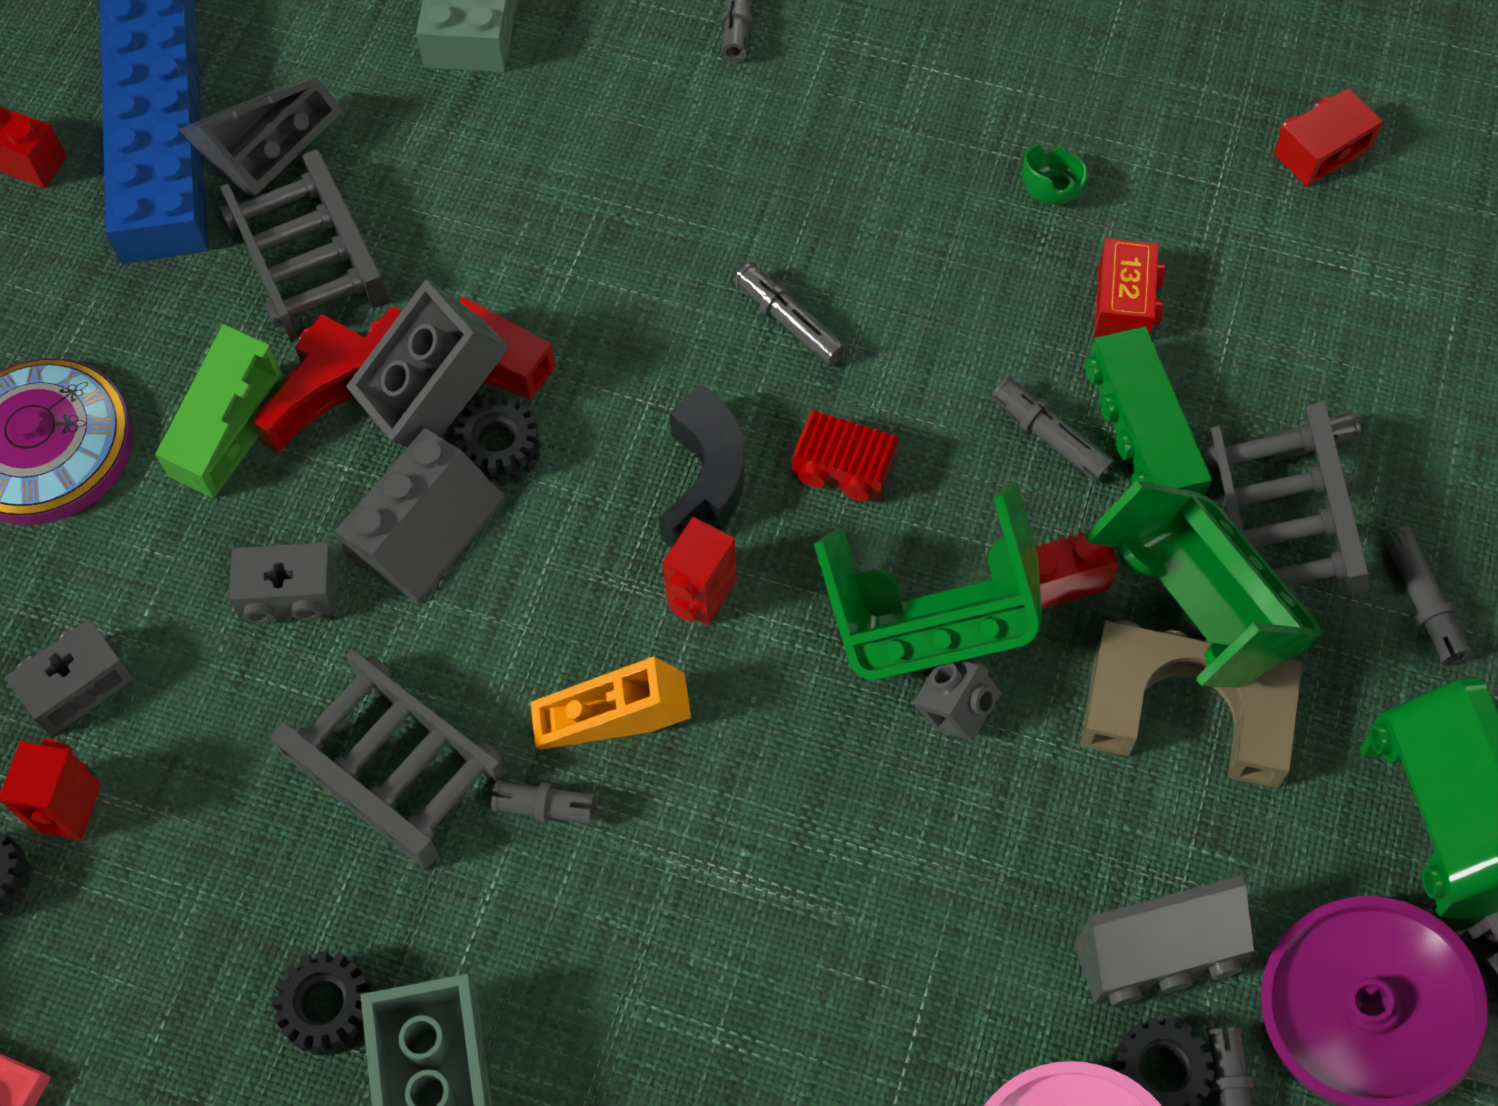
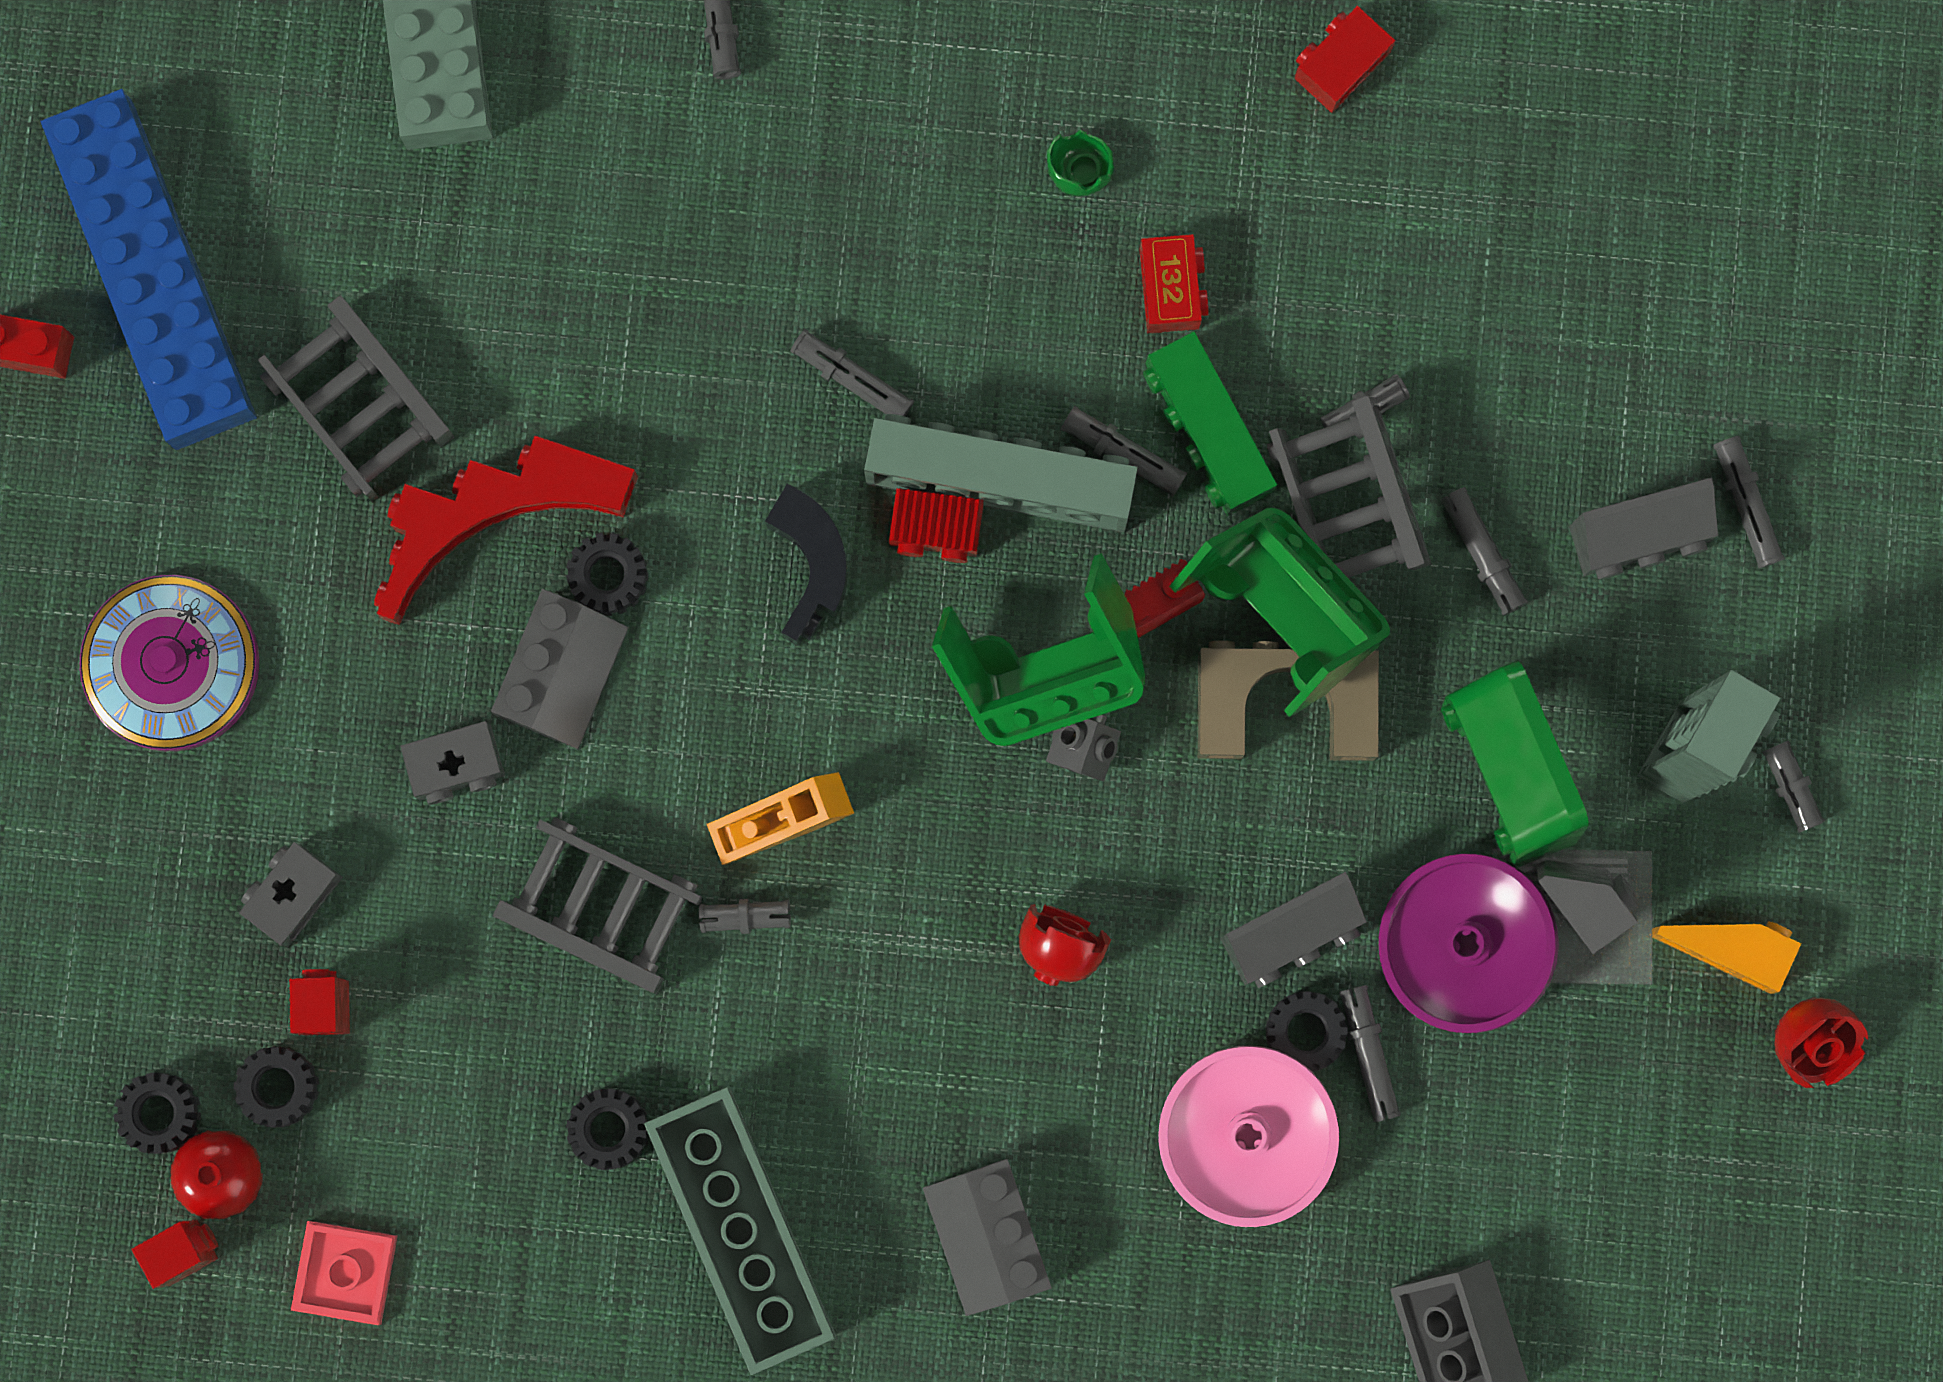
camera: 15 degrees left, 20 degrees up
(218, 412) = (341, 609): bright green wedge -> none
(263, 134) = (280, 283): dark grey wedge -> none
(426, 366) = (525, 527): dark grey slope -> none
(699, 572) = (831, 679): red brick -> none
(888, 907) = (1060, 945): none -> red cylinder
(939, 417) = (1001, 473): none -> sand green brick

